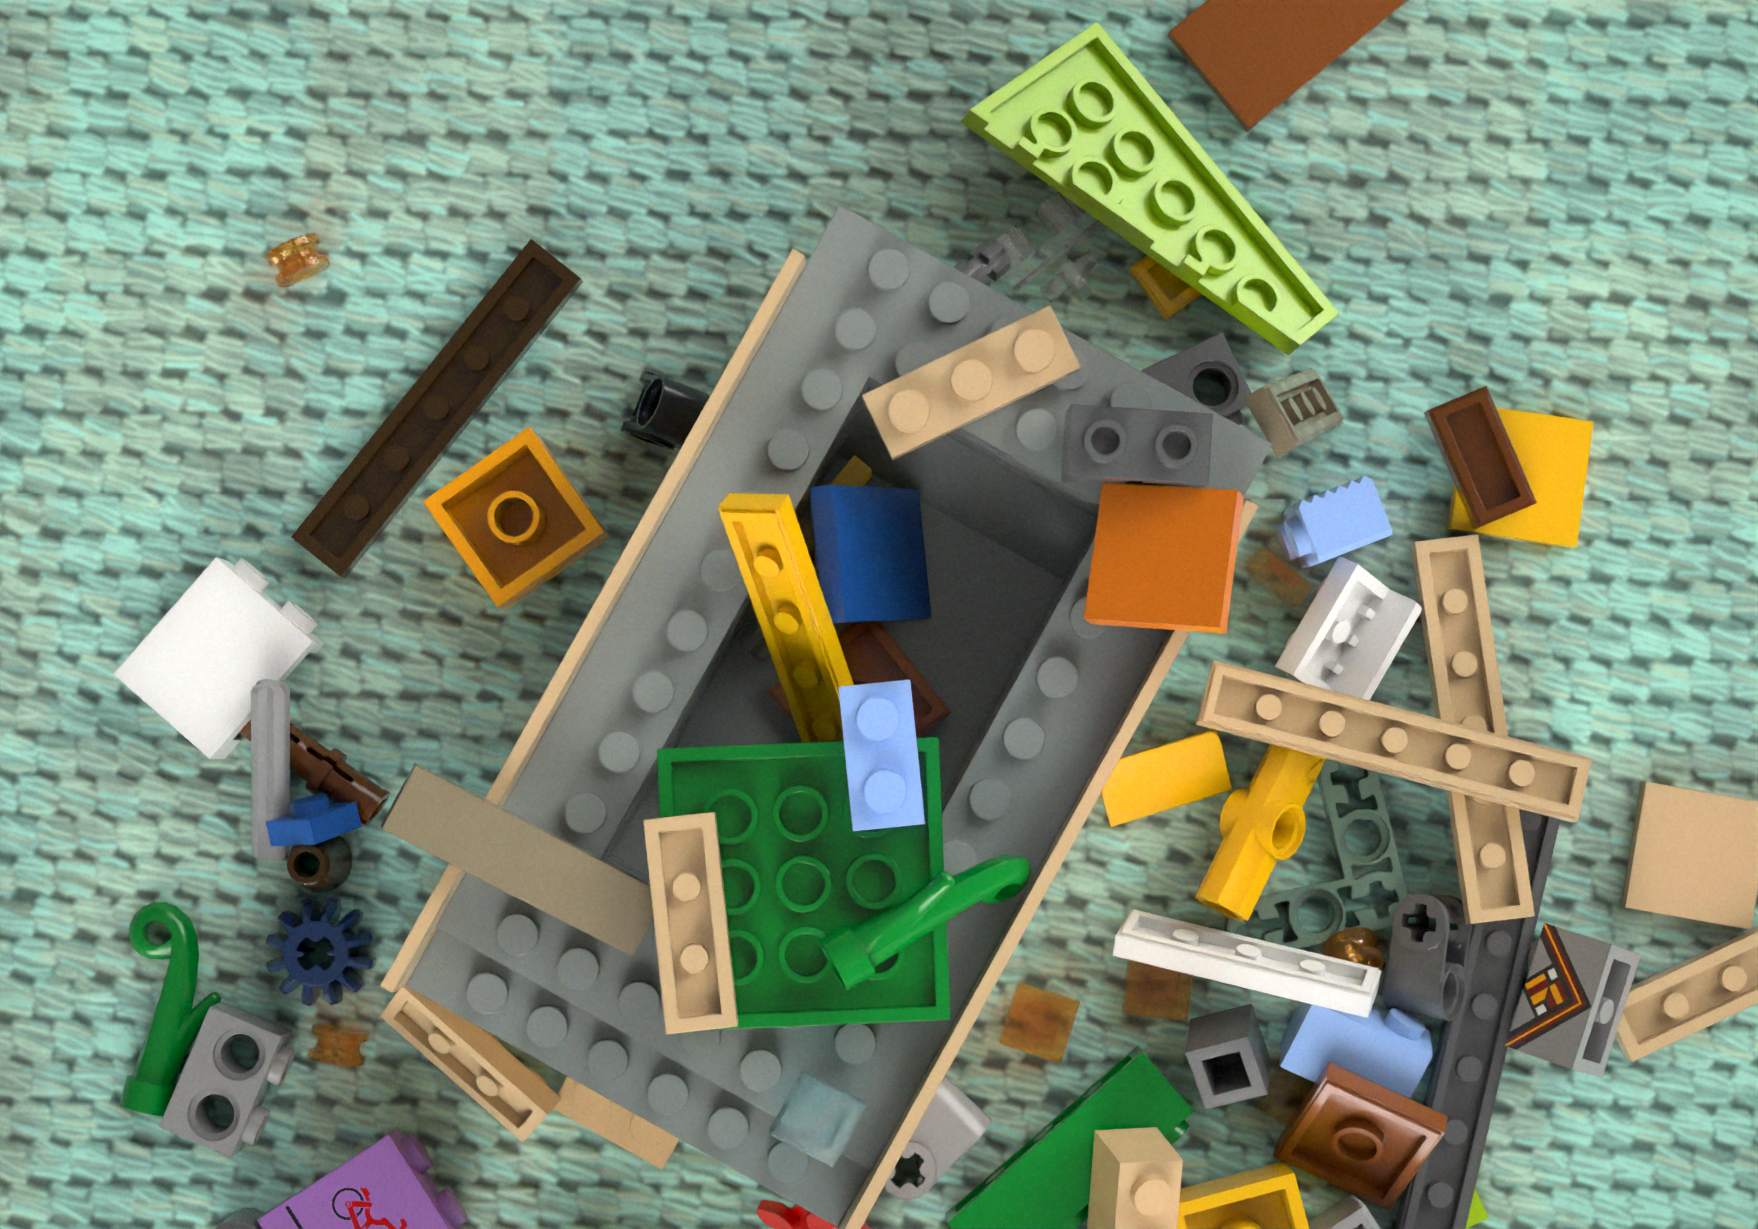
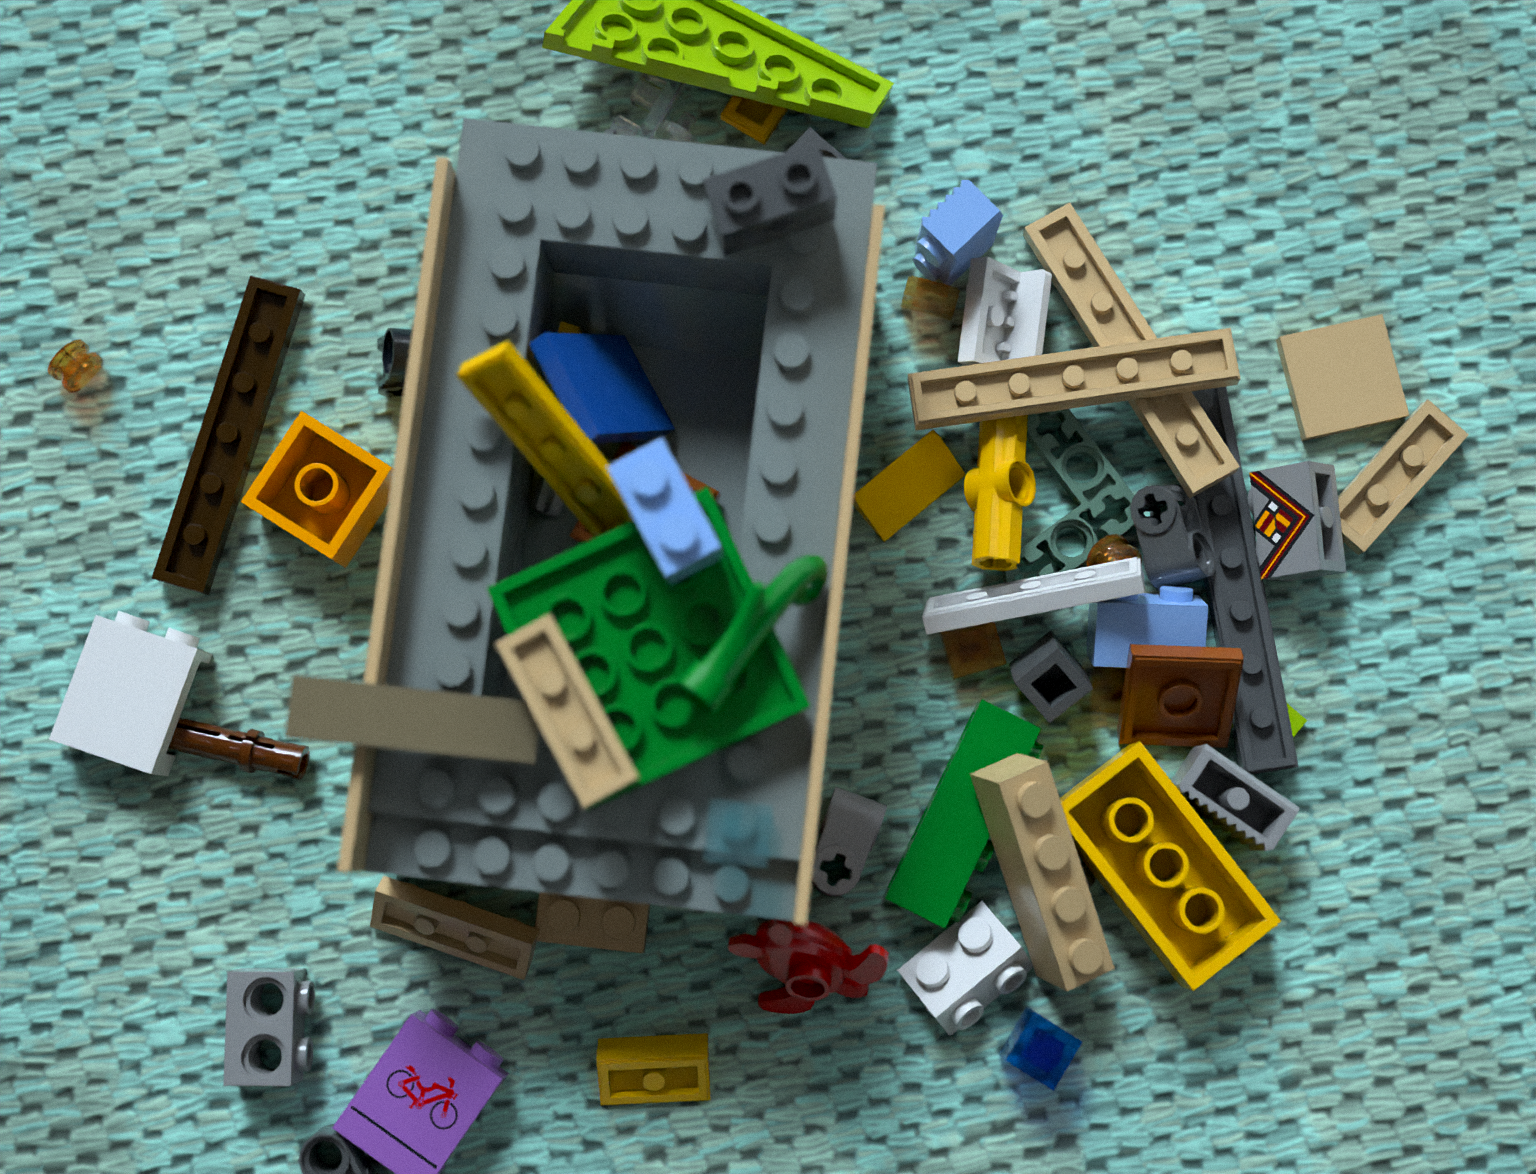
camera: 15 degrees left, 5 degrees down
(174, 1020) = (205, 996): green plant -> none
(269, 763) = (204, 764): light grey axle -> none
(313, 821) = (252, 789): blue plate -> none
(316, 927) = (306, 914): dark blue gear -> none
(334, 866) = (284, 823): dark brown cone -> none
(338, 1044) = (345, 962): clear orange bush -> none
(971, 382) = (620, 206): tan plate -> none
(1039, 1021) = (892, 713): clear orange plate -> none
(1164, 557) = (827, 272): orange tile -> none
(1294, 410) = (888, 150): dark tan tile -> none
(1480, 457) = (1046, 144): reddish brown tile -> none
(1555, 463) = (1083, 148): yellow tile -> none

